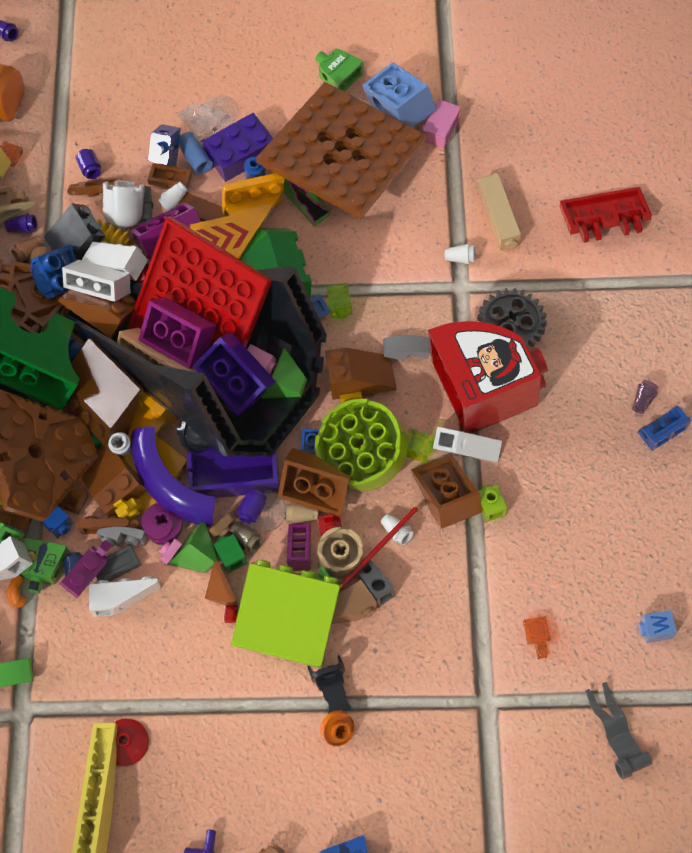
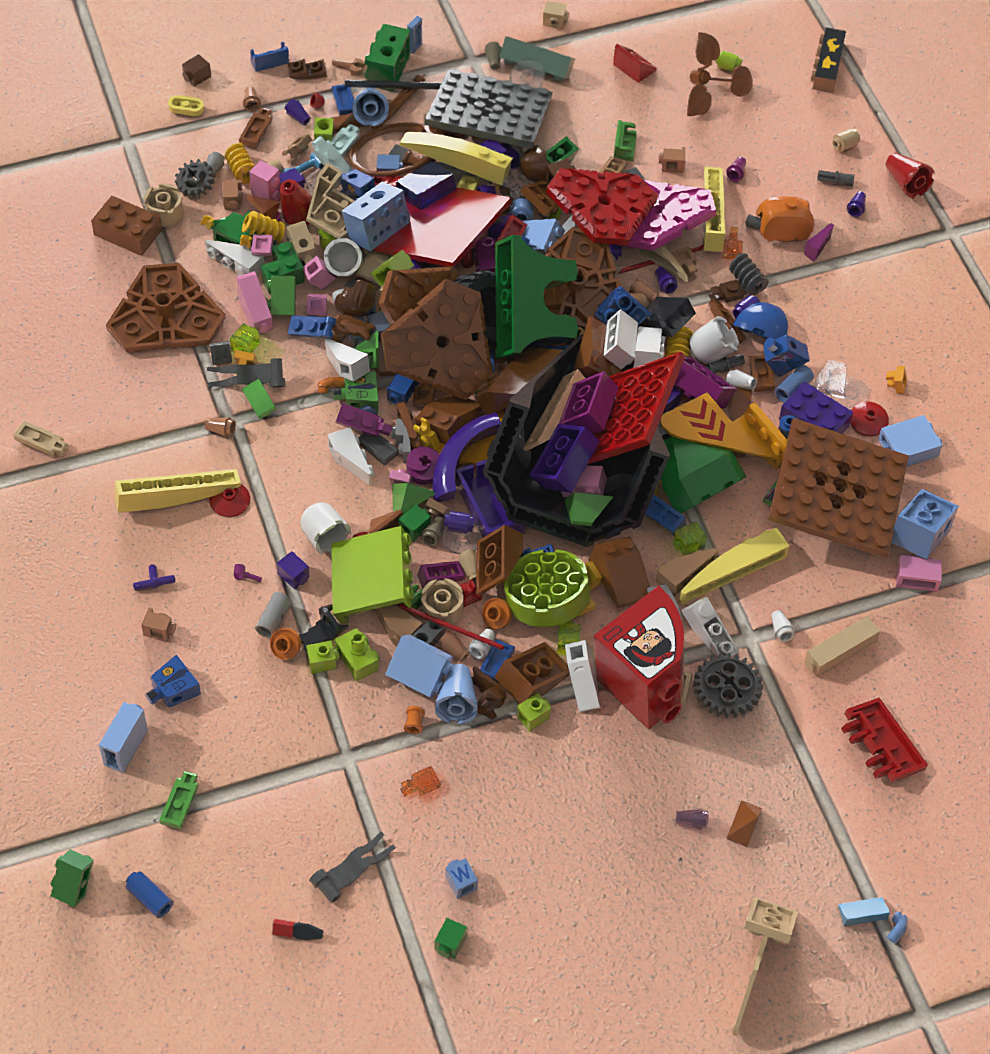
camera: 65 degrees right, 10 degrees down
(26, 726) = (223, 426): none -> nougat cone
(40, 80) = (817, 243): none -> magenta slope
(49, 149) = (748, 274): none -> dark grey piece
(58, 173) = (728, 290): none -> reddish brown plate
(113, 151) = (763, 320): none -> blue brick
(120, 444) = (478, 406): white cone -> none
(205, 647) = (323, 526): none -> white cylinder
(223, 67) = (897, 379): none -> light orange tile
(227, 755) = (239, 573): none -> magenta hand
(247, 695) = (293, 570): none -> dark purple brick
(263, 110) = (869, 425): none -> red dish
(295, 732) = (273, 614): none -> light grey pin
(296, 80) = (913, 438): none -> light blue brick
(339, 68) = (938, 473): bright green torso -> none
(364, 694) = (322, 657): none -> lime brick
(368, 504) = (496, 613): none -> orange plate
(372, 657) = (357, 654): none -> lime brick
(374, 319) = (683, 569): none -> medium nougat slope
(380, 269) = (737, 563): none -> light yellow slope
(390, 558) = (452, 645): none -> nougat cone
(411, 596) = (419, 665): none -> light blue brick
(421, 523) = (496, 658): none -> blue tile
(440, 313) = (709, 627): none -> white slope
(452, 568) = (457, 696): none -> light blue cone
(457, 535) = (491, 691): none -> reddish brown hair
(466, 621) = (414, 719): none -> orange bush
(658, 353) = (744, 823): none -> dark orange slope
(664, 428) = (665, 844): blue hinge -> none
(672, 815) = (297, 930): none -> piece

